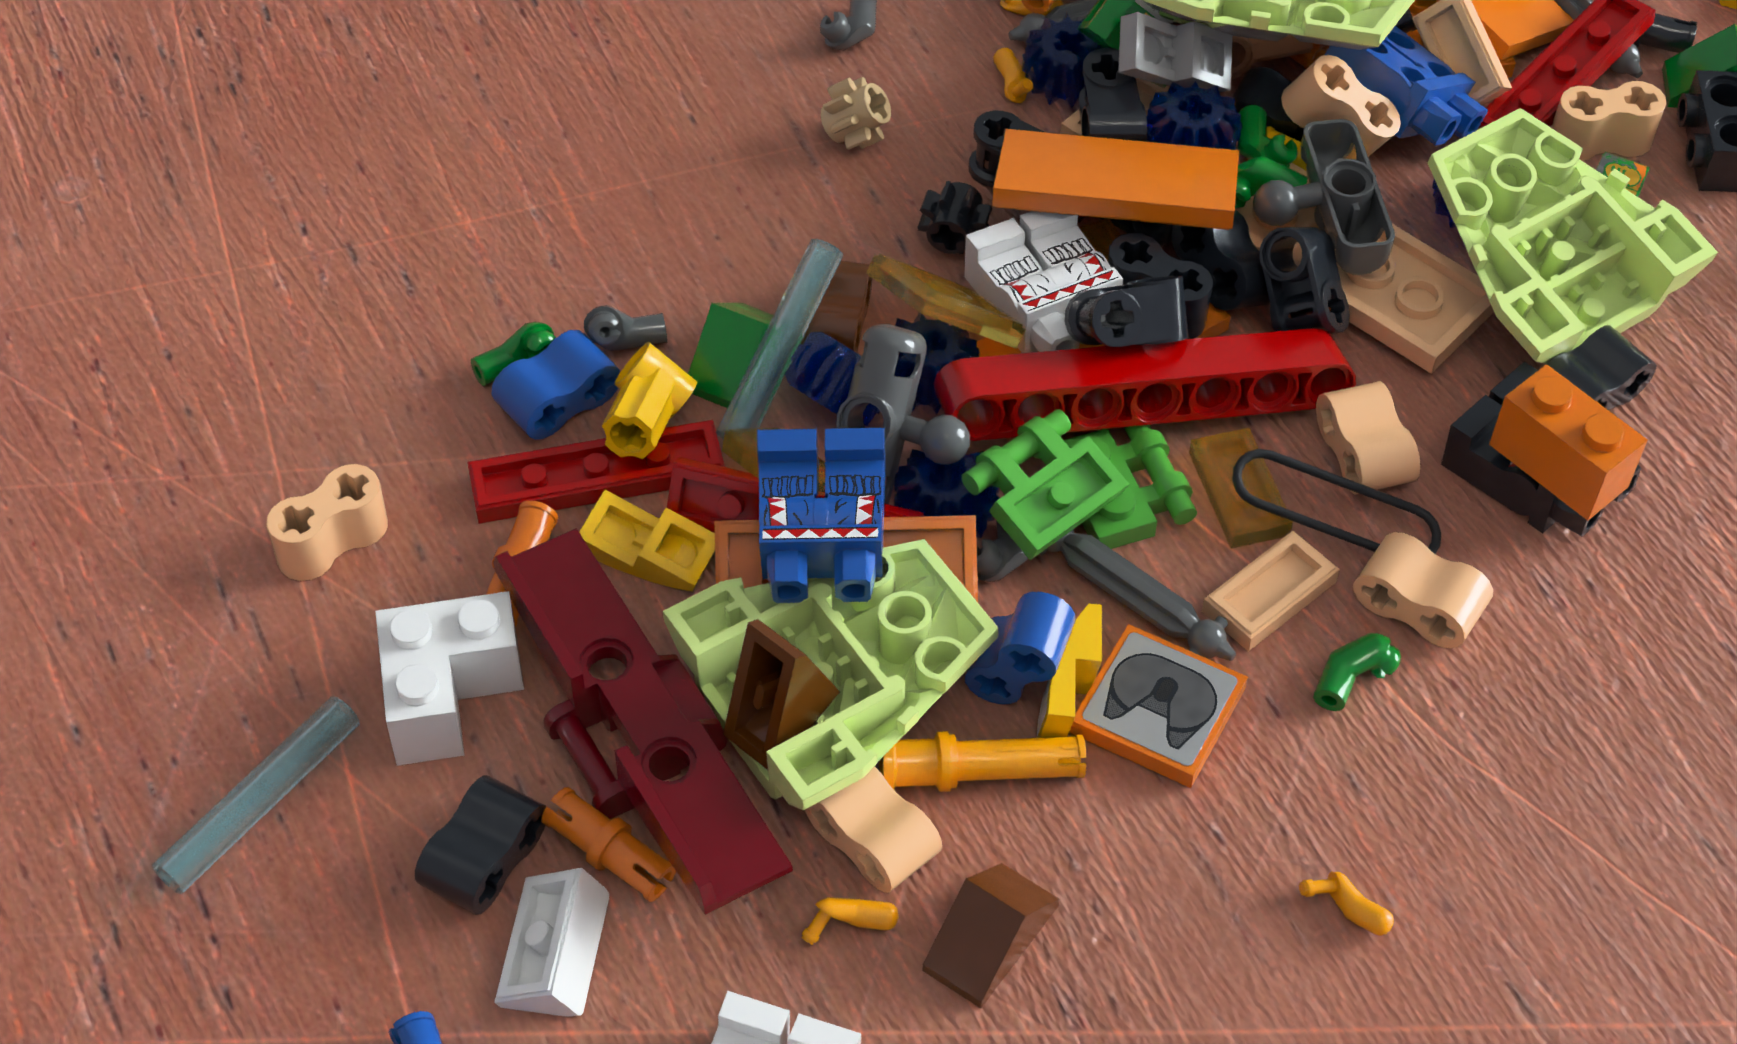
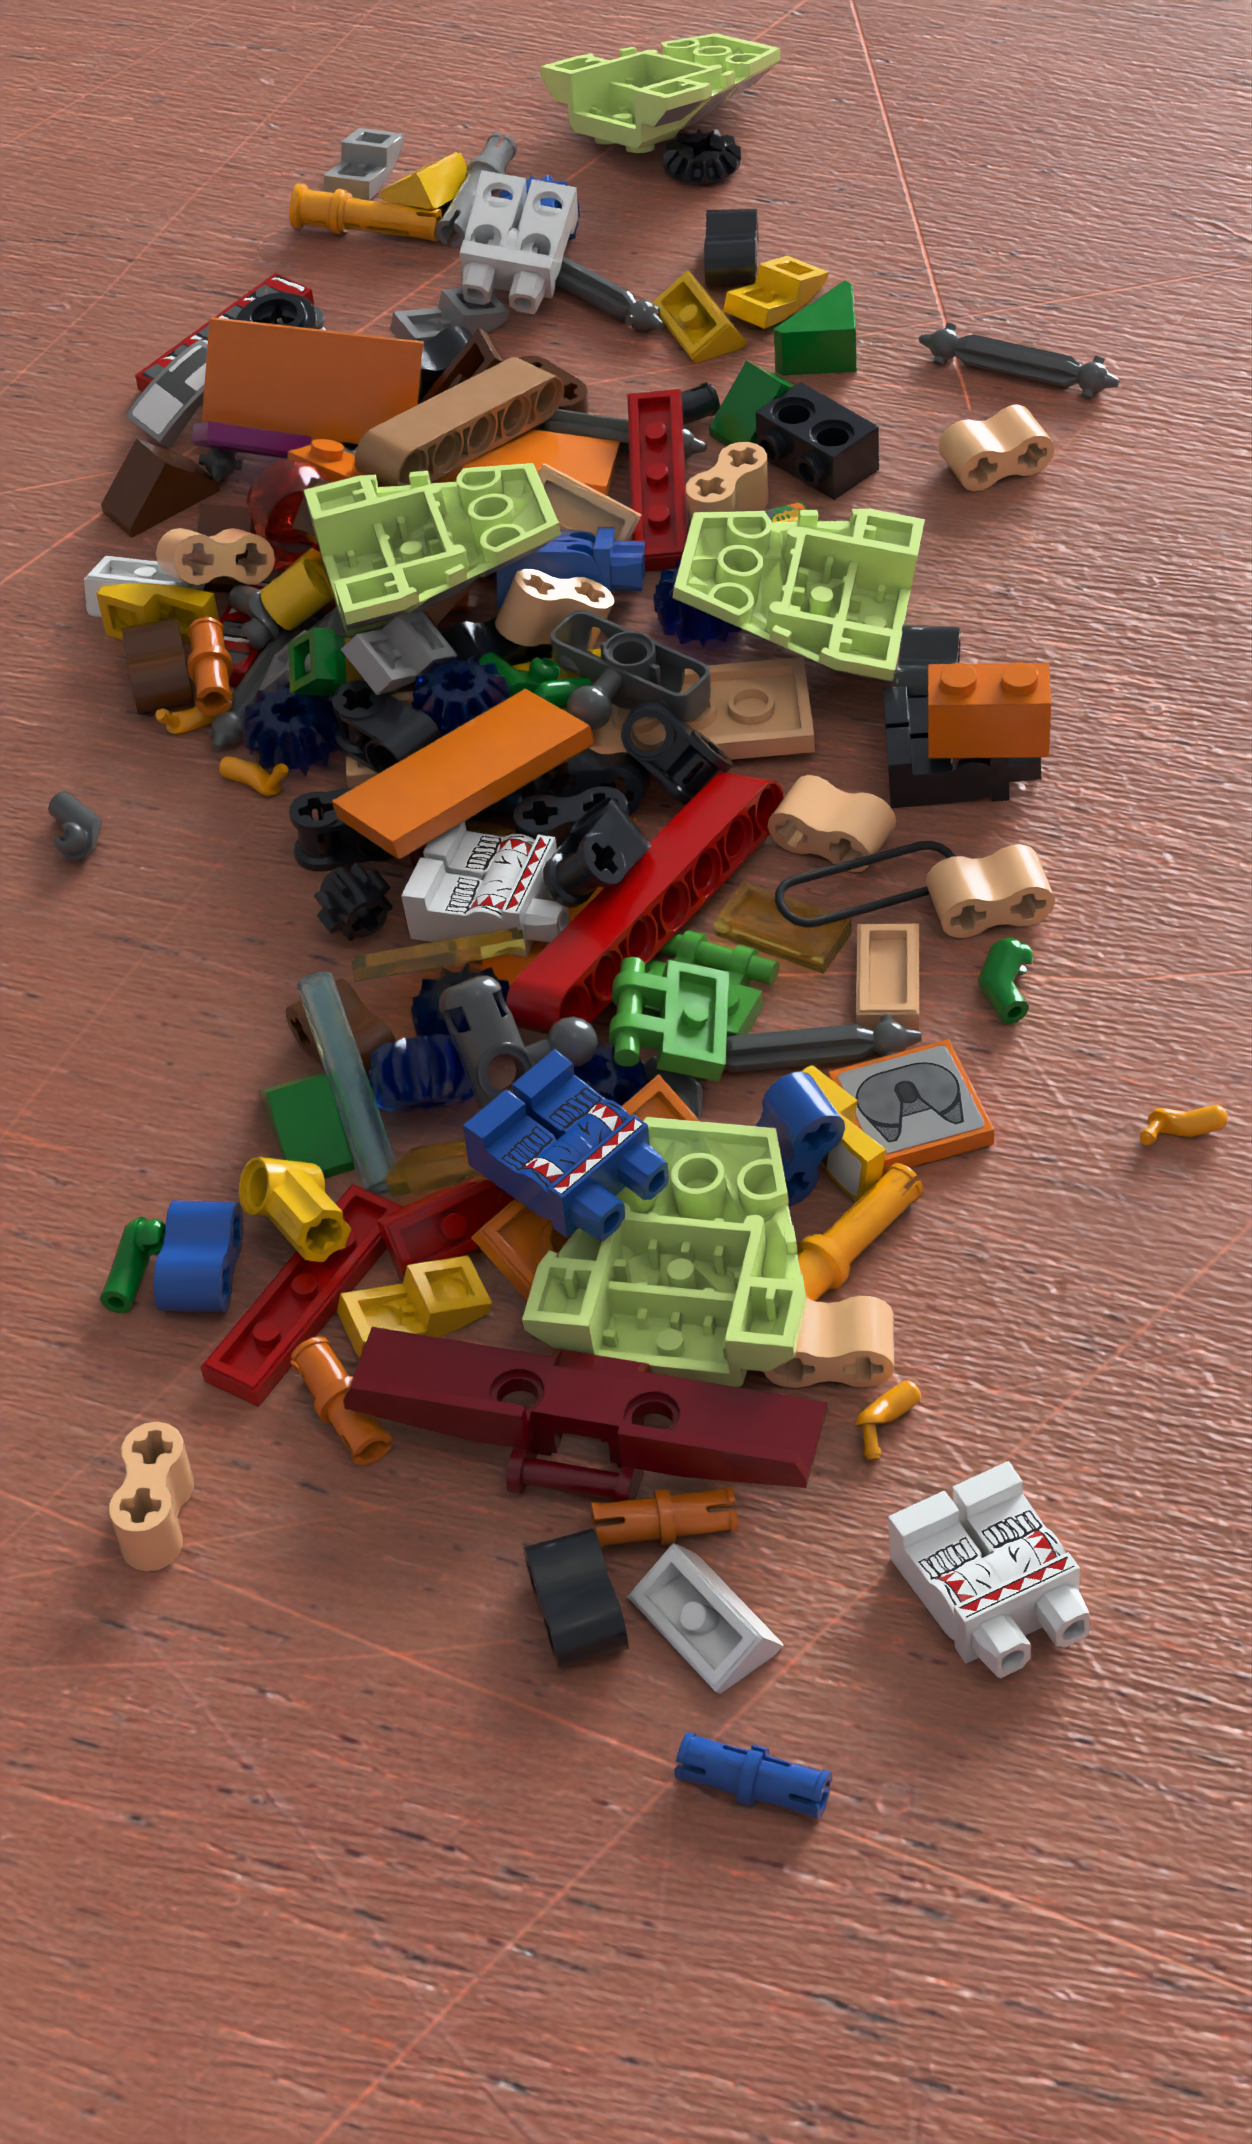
camera: 40 degrees left, 5 degrees down
(255, 795) = (354, 1724): clear light blue piece -> none
(437, 657) = (381, 1515): white brick -> none
(620, 331) = (198, 1179): dark grey arm -> none
(773, 693) = (680, 1302): reddish brown slope -> none
(855, 113) = (177, 885): tan gear -> none
(988, 931) = (990, 1343): reddish brown slope -> none

